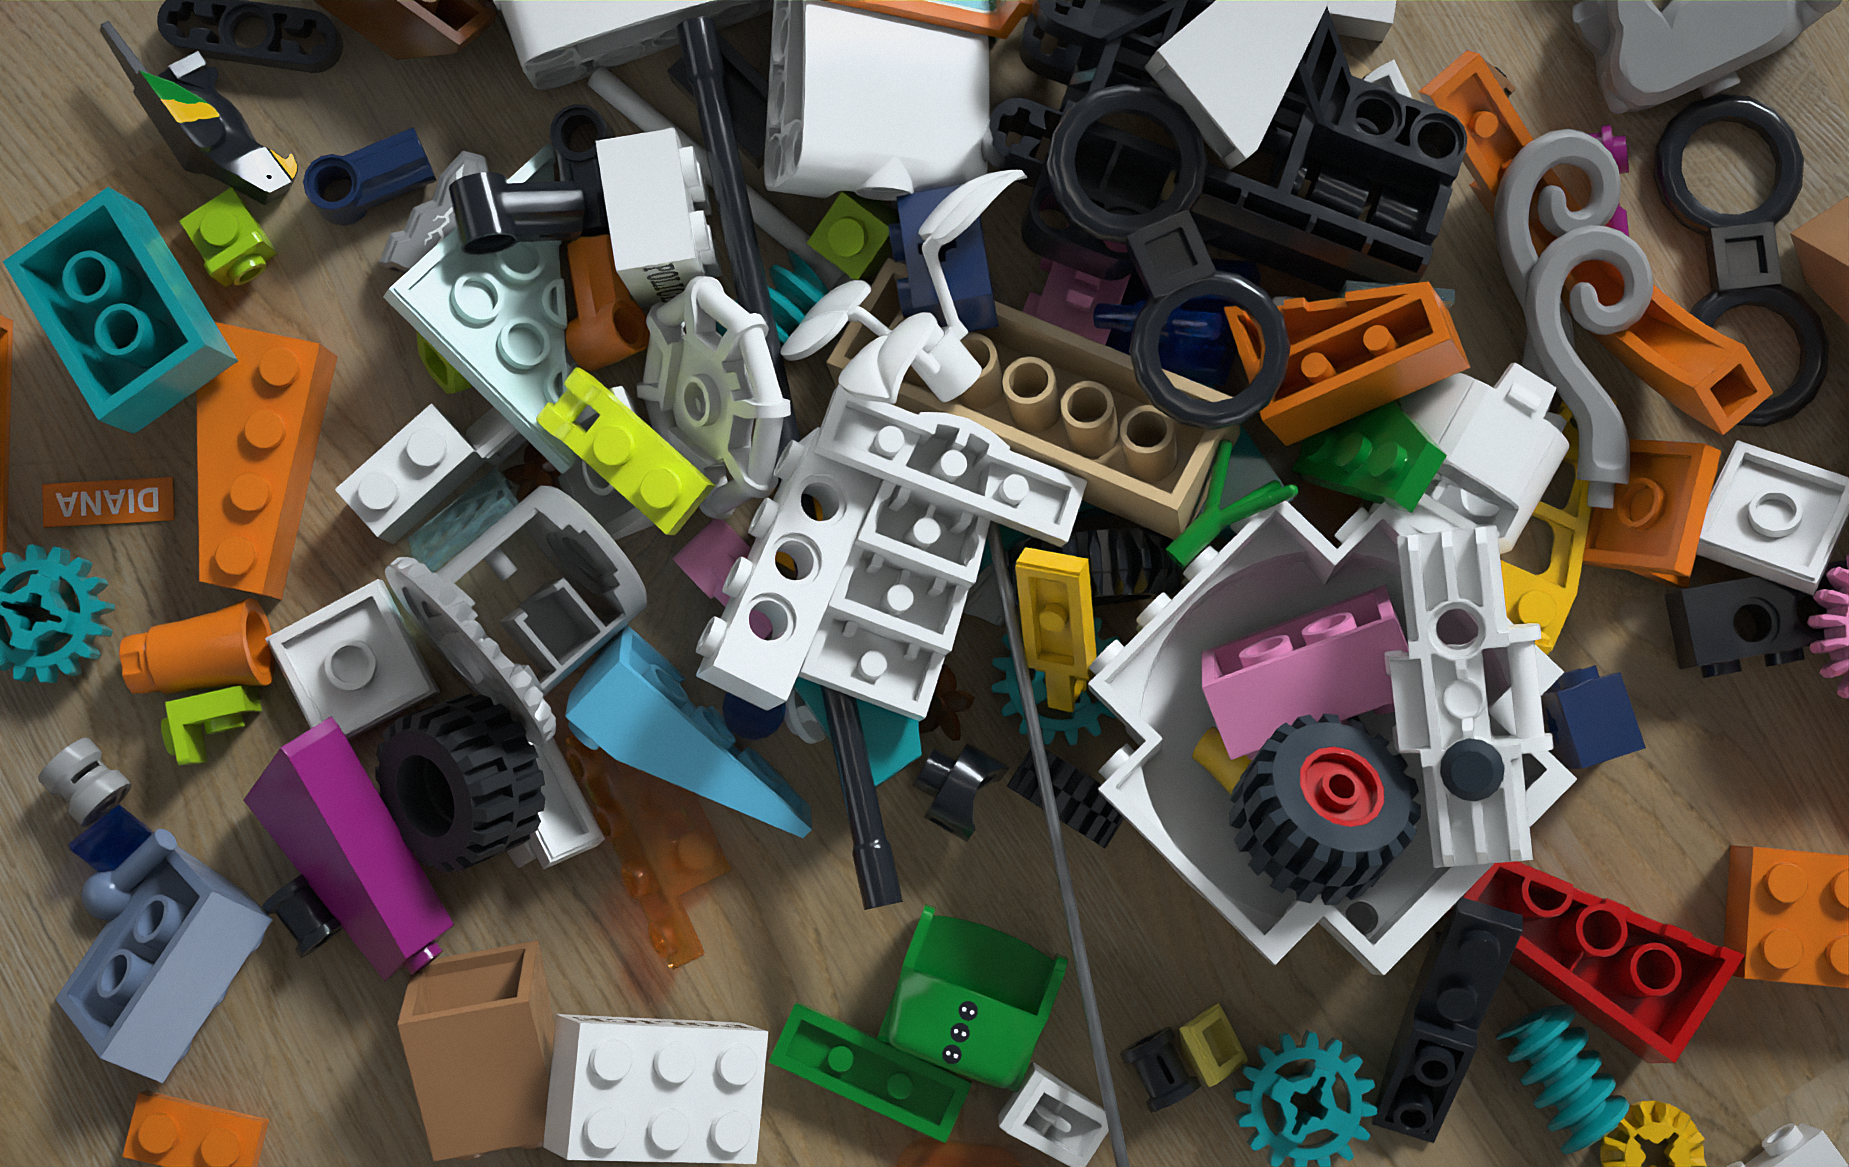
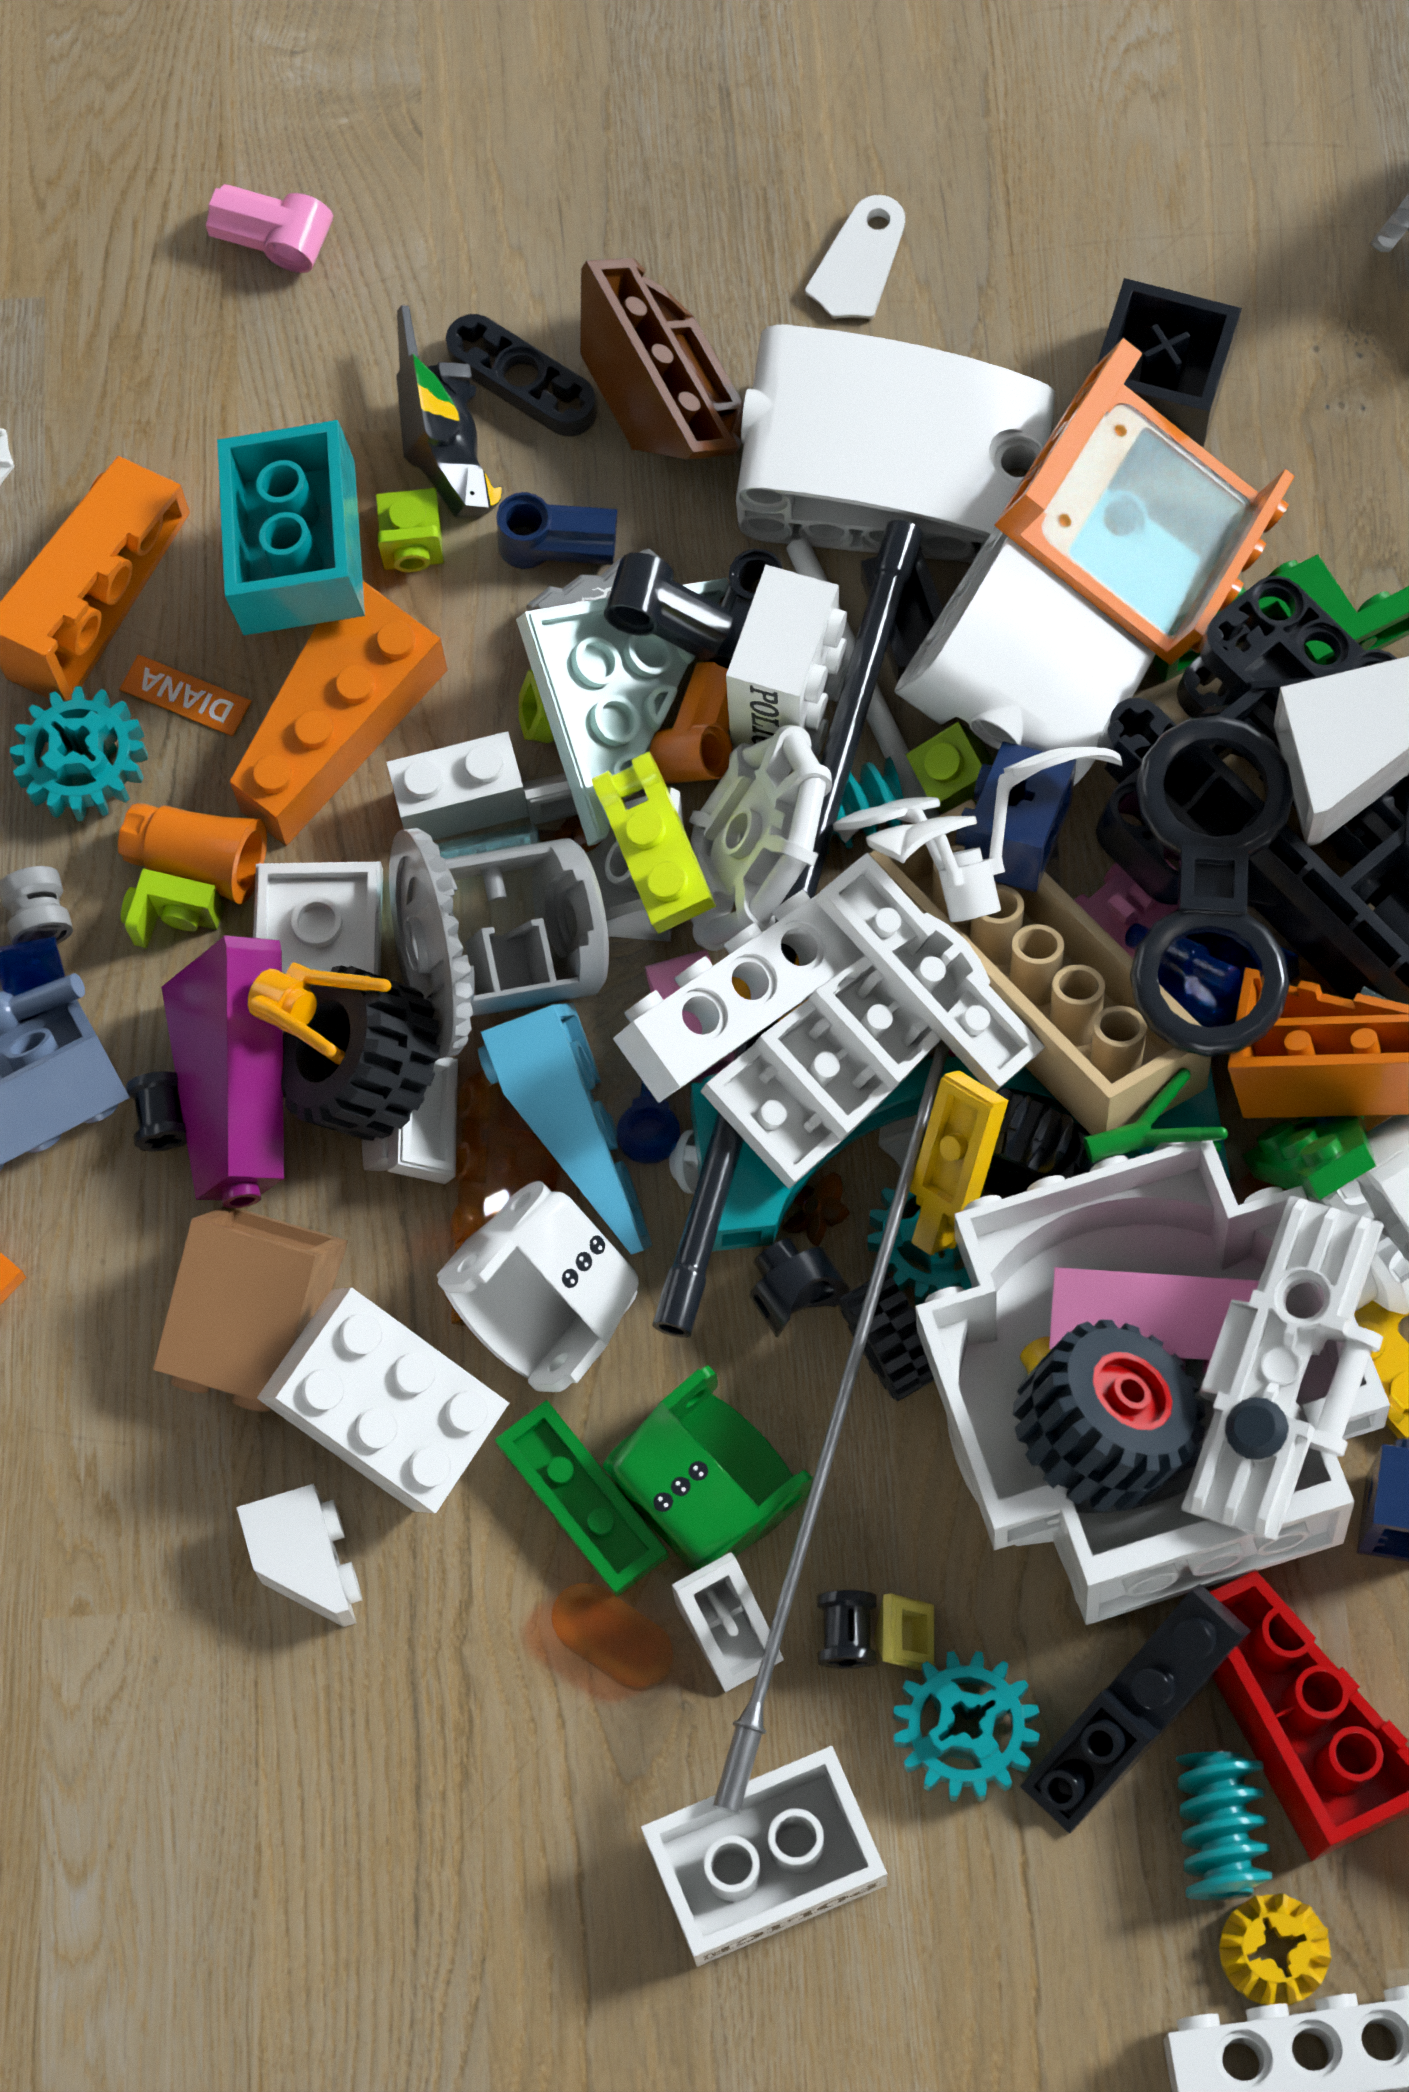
camera: 25 degrees right, 15 degrees down
(373, 780) = (290, 1005): none -> light orange plant
(740, 912) = (540, 1287): none -> white piece

